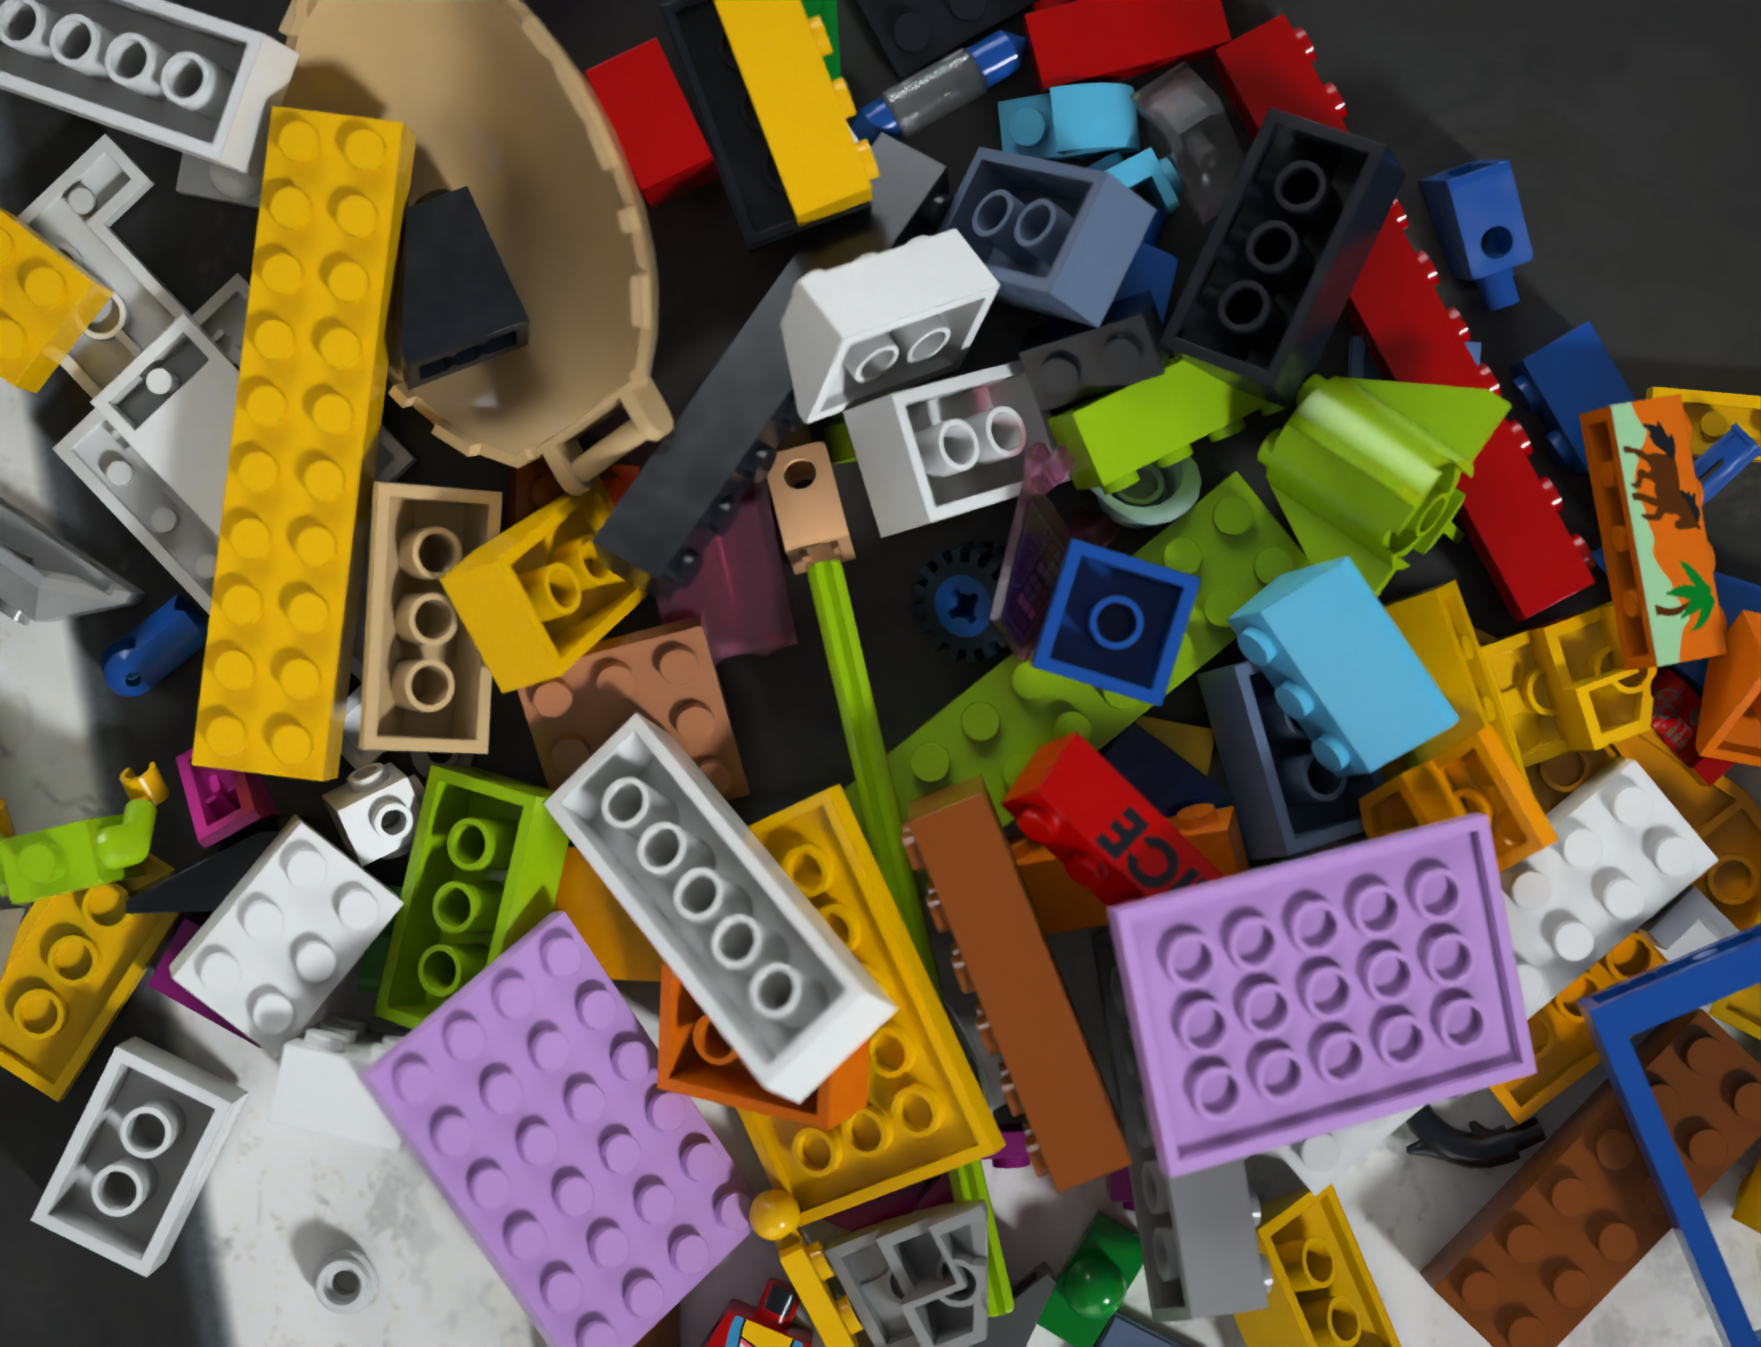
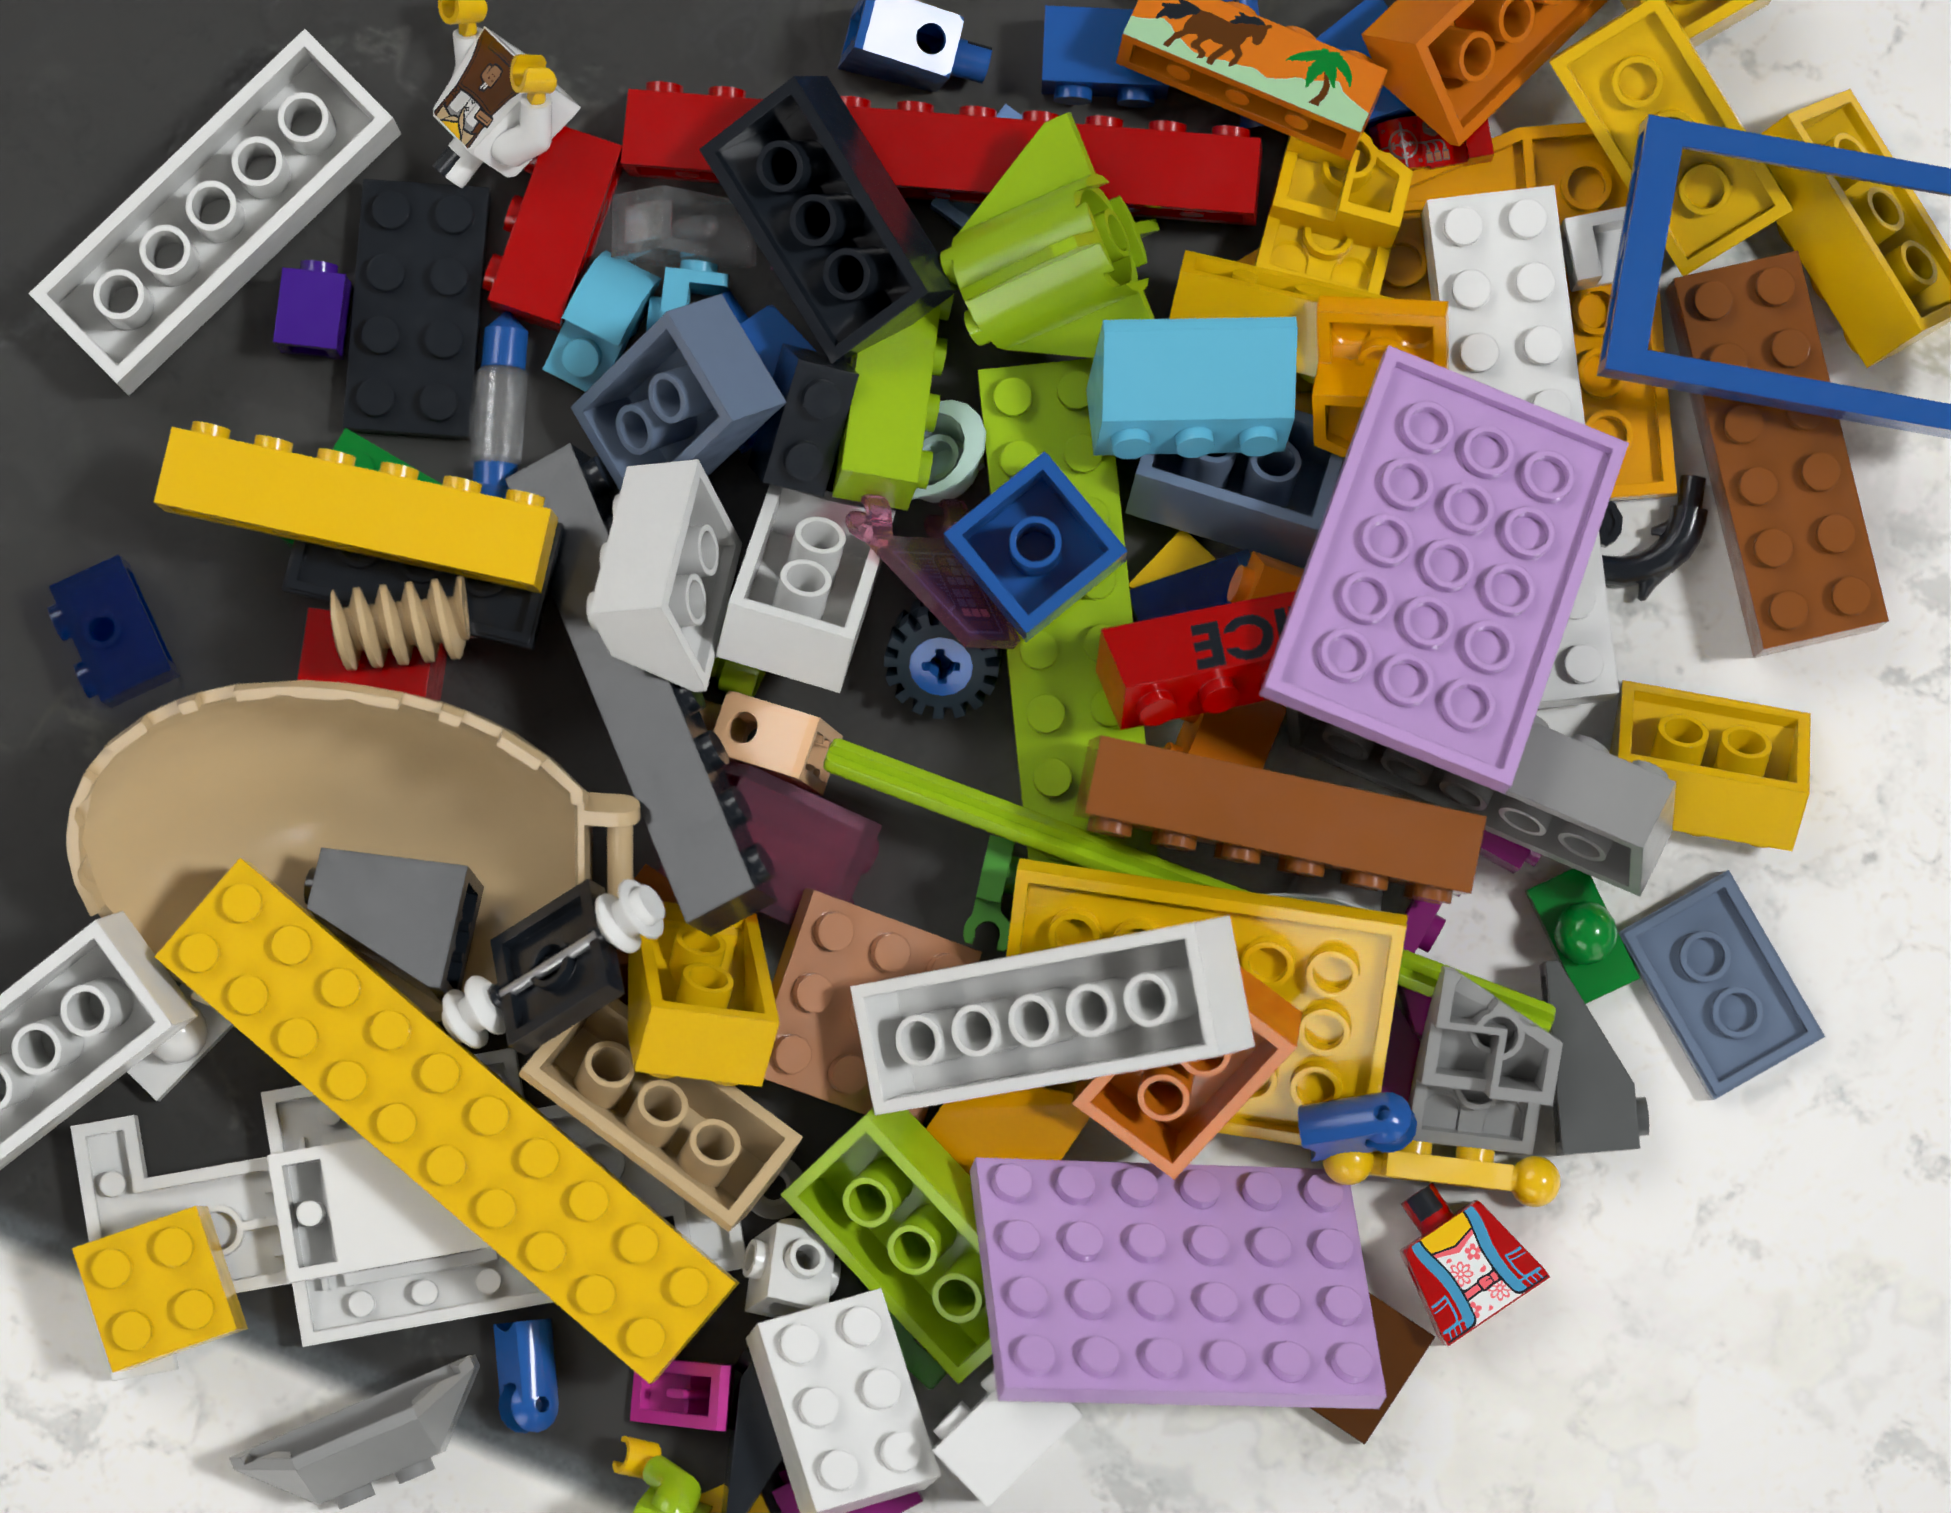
camera: 55 degrees left, 5 degrees down
(485, 452) = (555, 966): none -> black plate
(687, 125) = (401, 625): none -> tan piece
(805, 1208) = (1356, 1125): none -> blue piece
(821, 768) = (996, 879): none -> bright green plate

